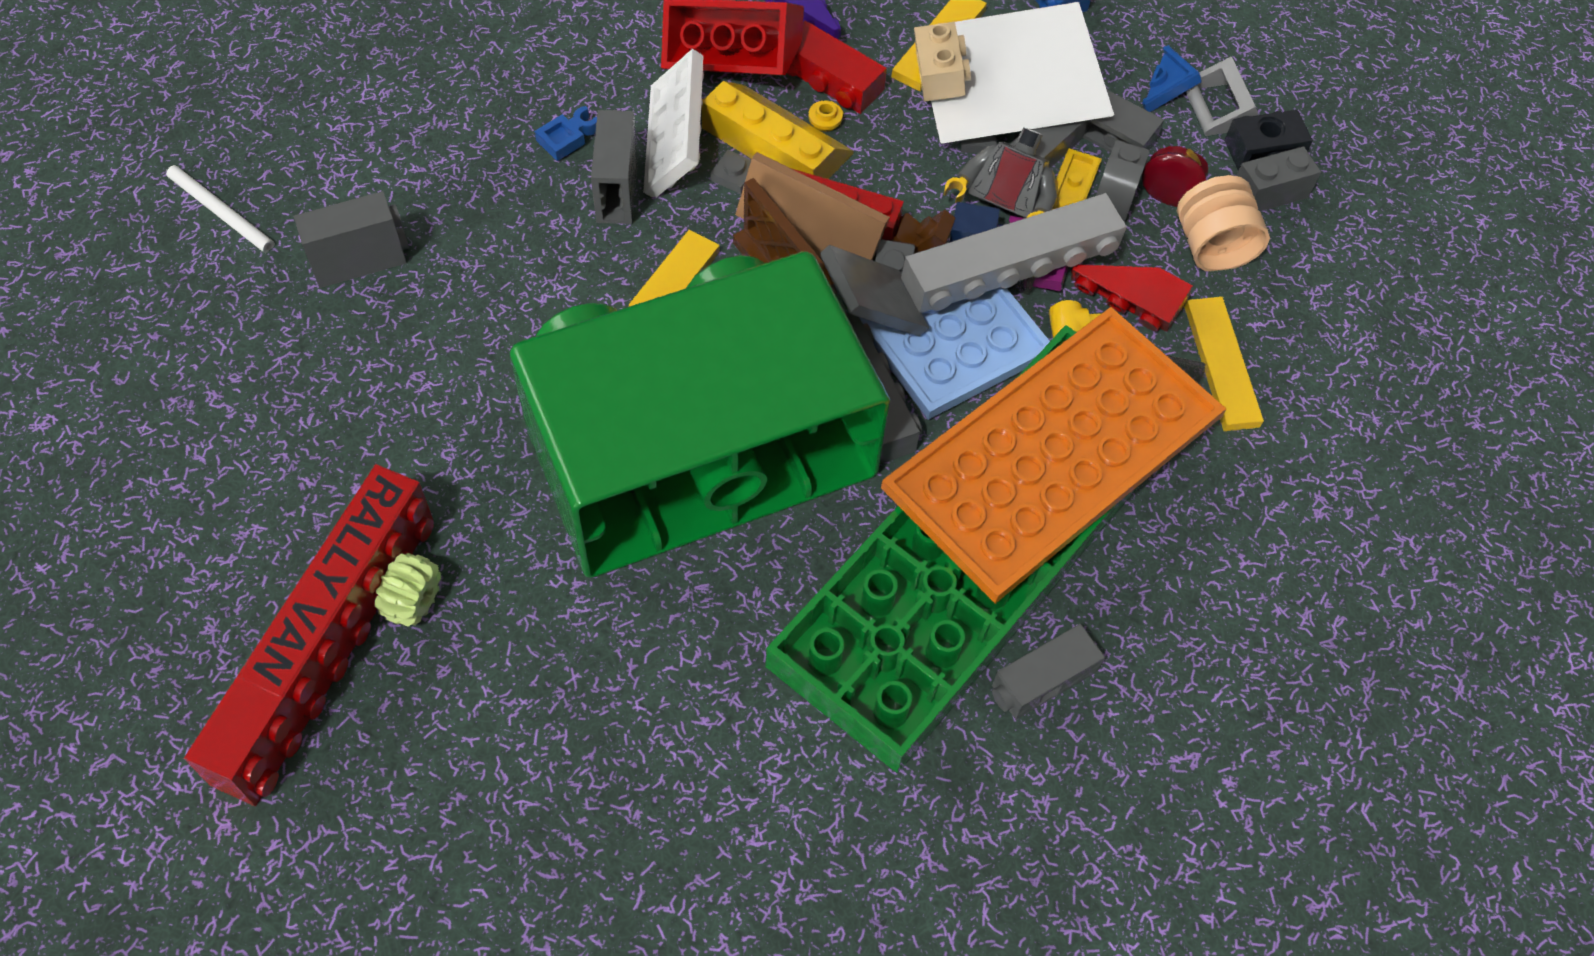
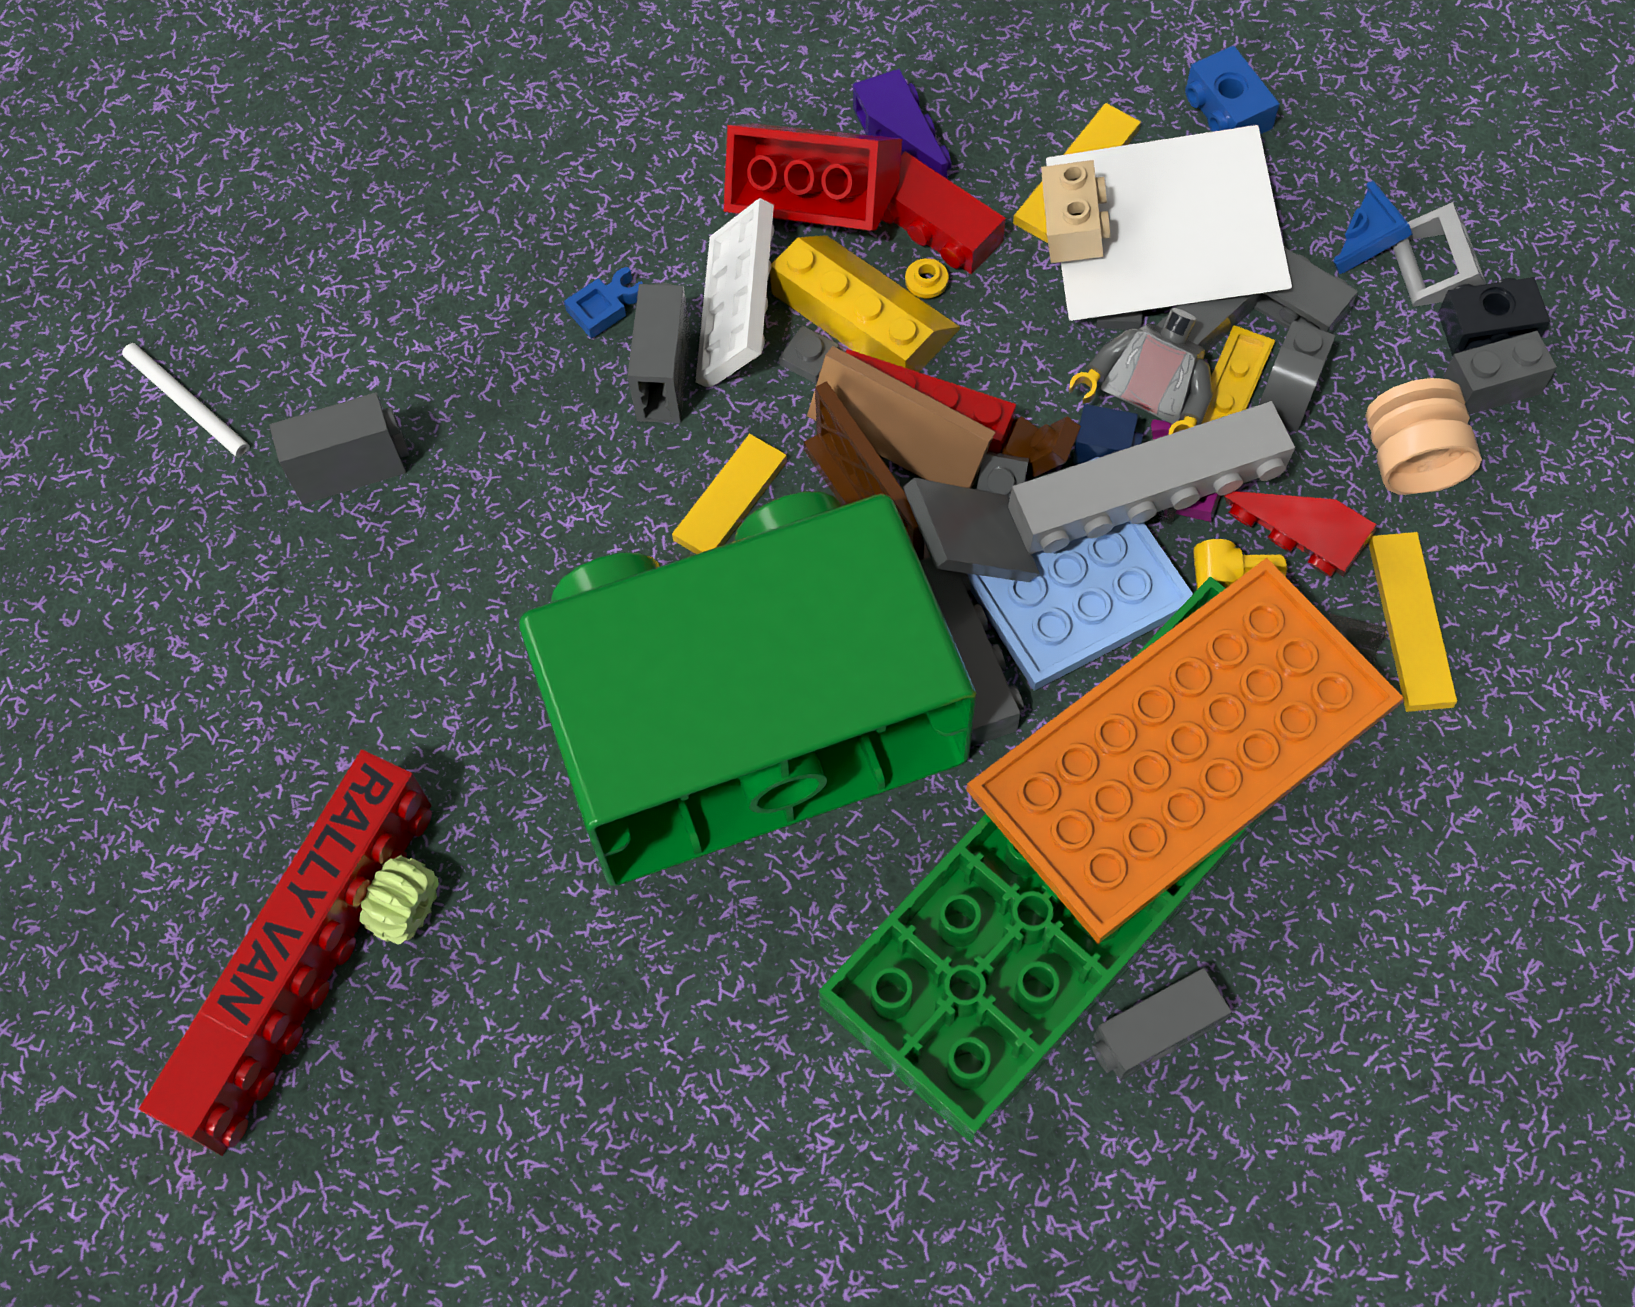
camera: 10 degrees right, 5 degrees up
(1173, 173) = (1366, 366): dark red piece -> none

